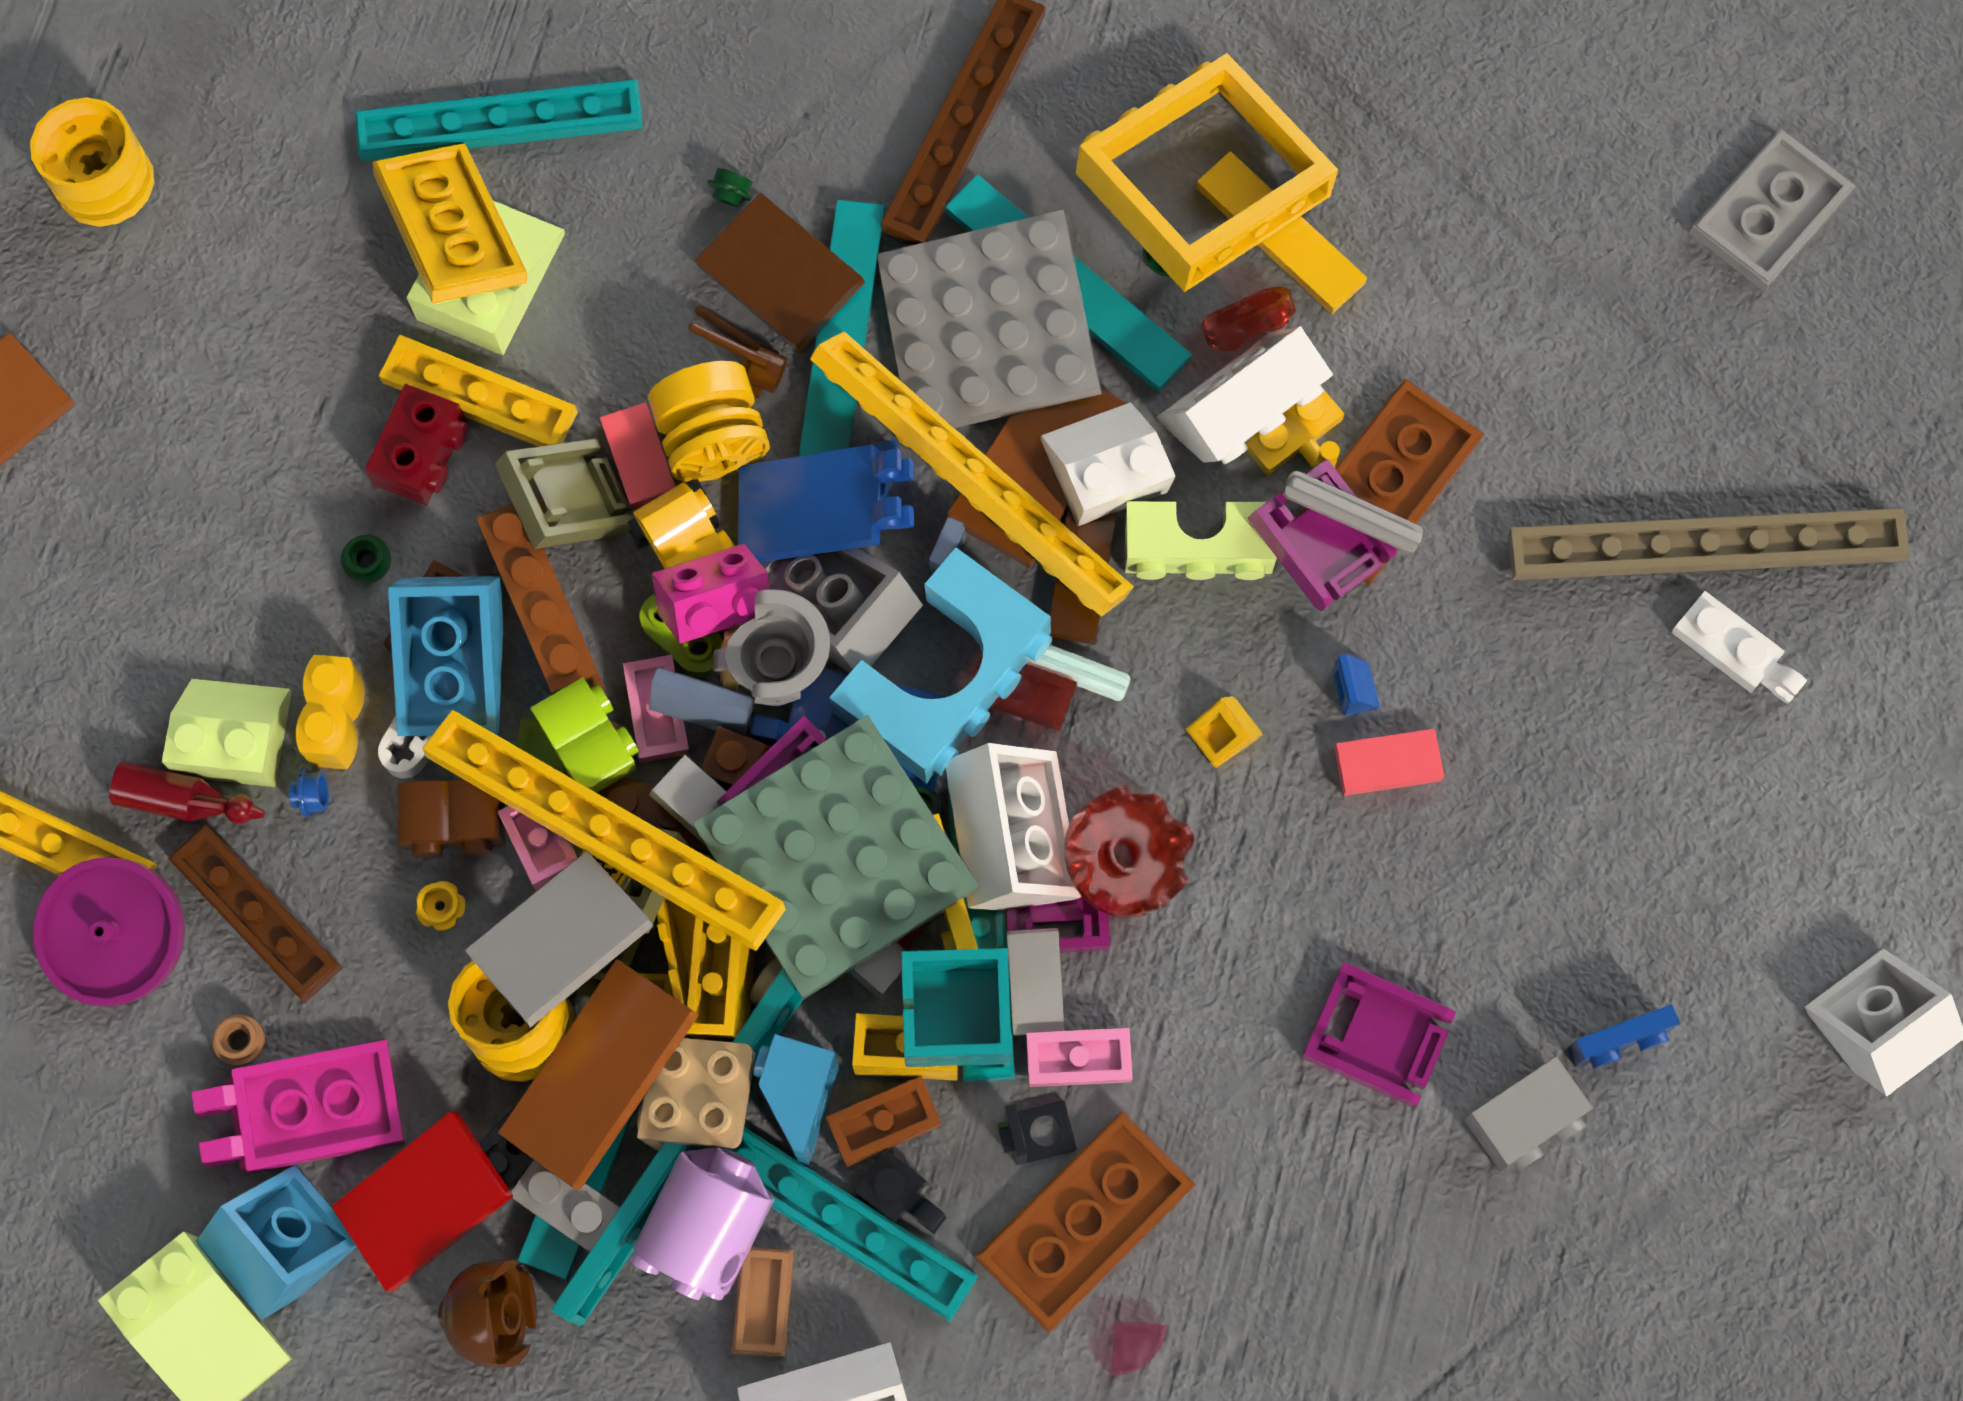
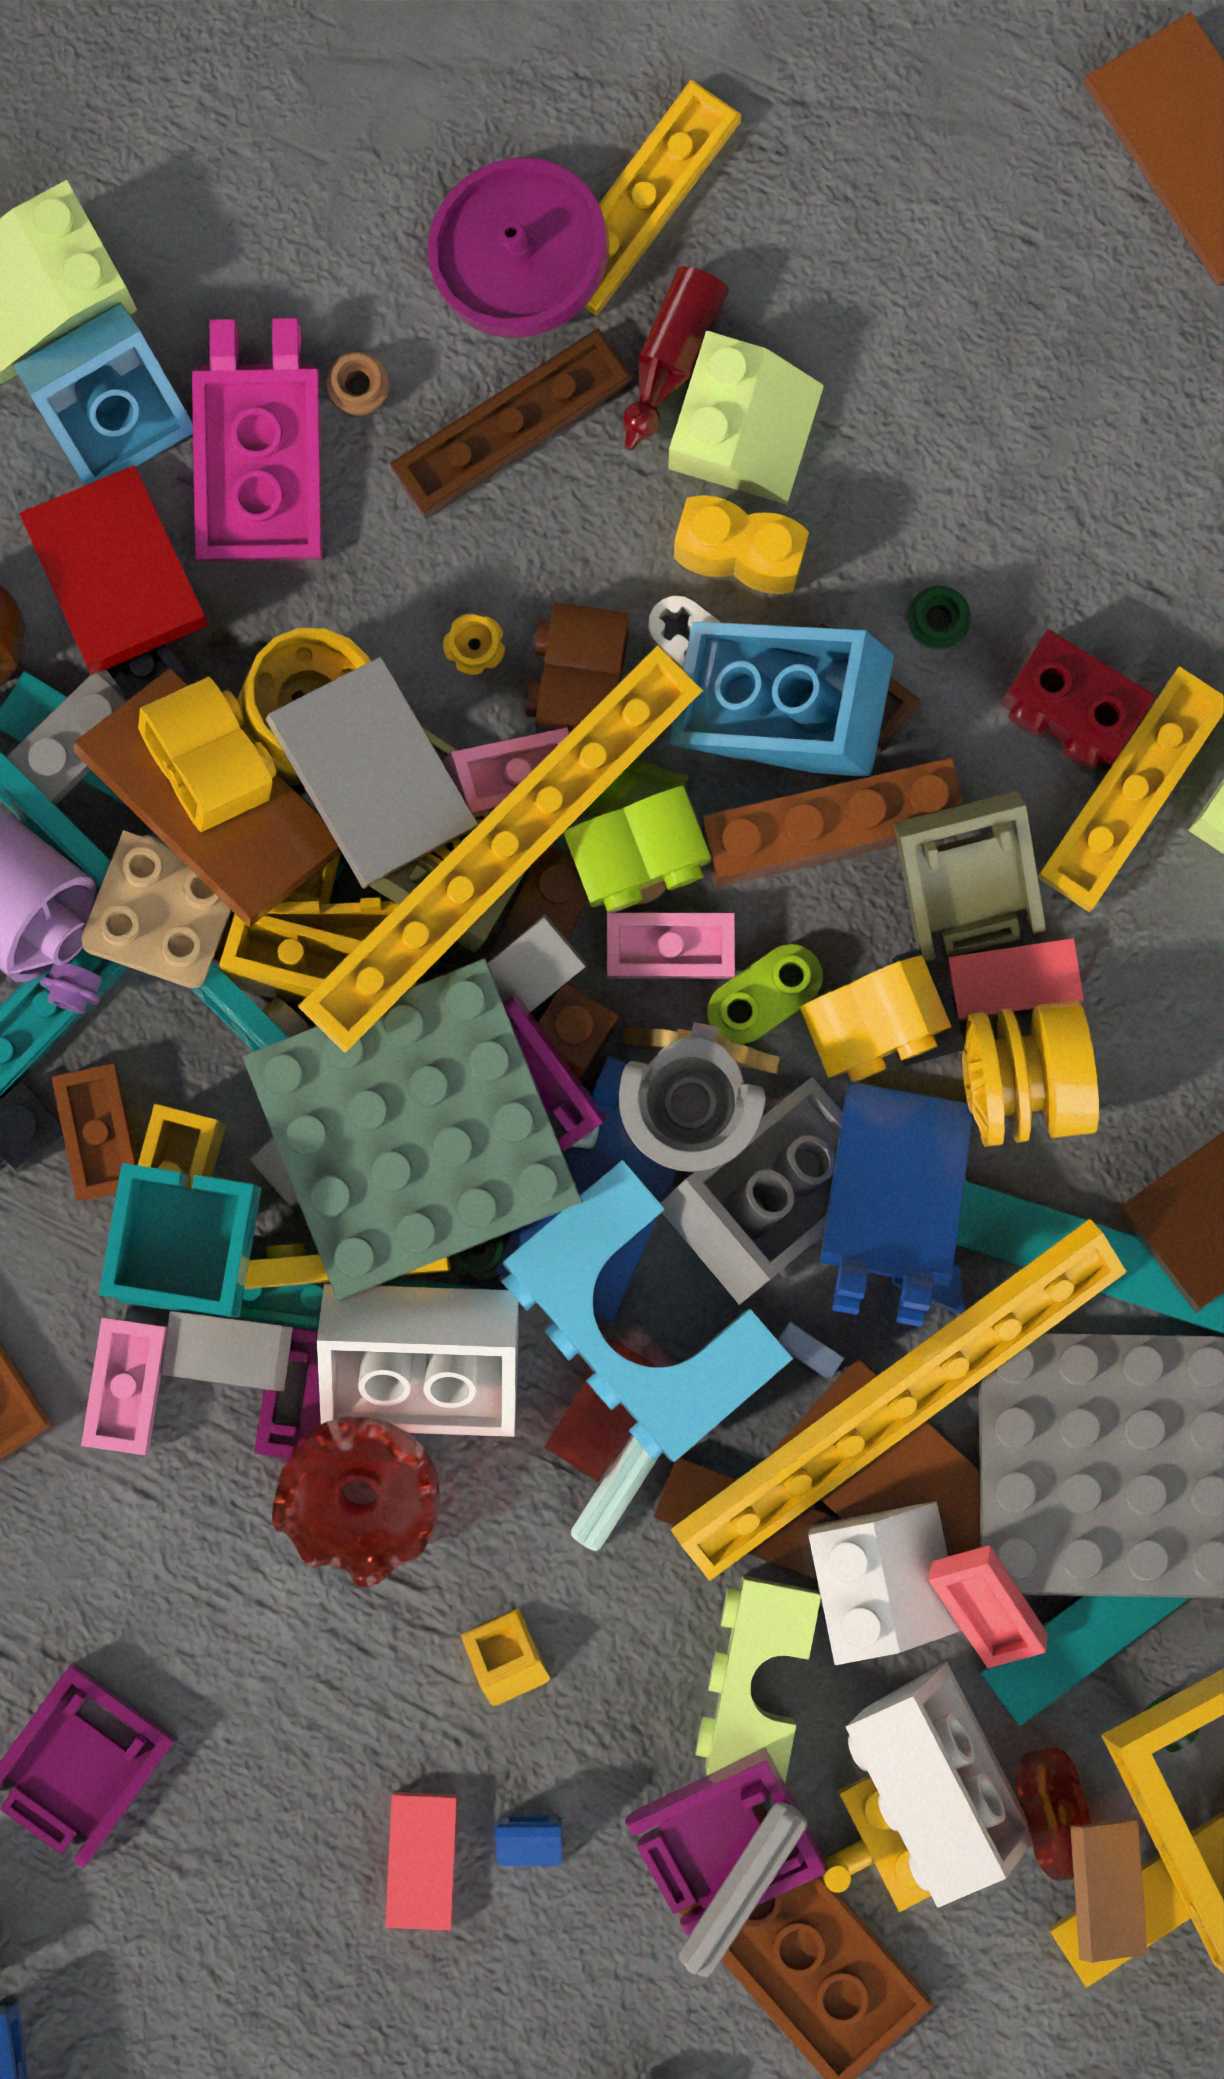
camera: 105 degrees right, 10 degrees up
(309, 792) = (647, 507): blue plate -> none
(564, 1075) = (206, 753): none -> yellow brick
(700, 702) = (654, 999): sand blue tile -> none
(709, 592) = (789, 1041): dark pink brick -> none
(762, 363) = (1104, 1156): reddish brown plant -> none
(771, 1158) = (72, 987): none -> medium lavender plate
(798, 1088) = (143, 1029): dark azure slope -> none
(1017, 1138) = (42, 1291): black bracket -> none
(1109, 383) = (988, 1606): none -> coral tile
(1293, 269) = (1108, 1890): none -> medium nougat tile

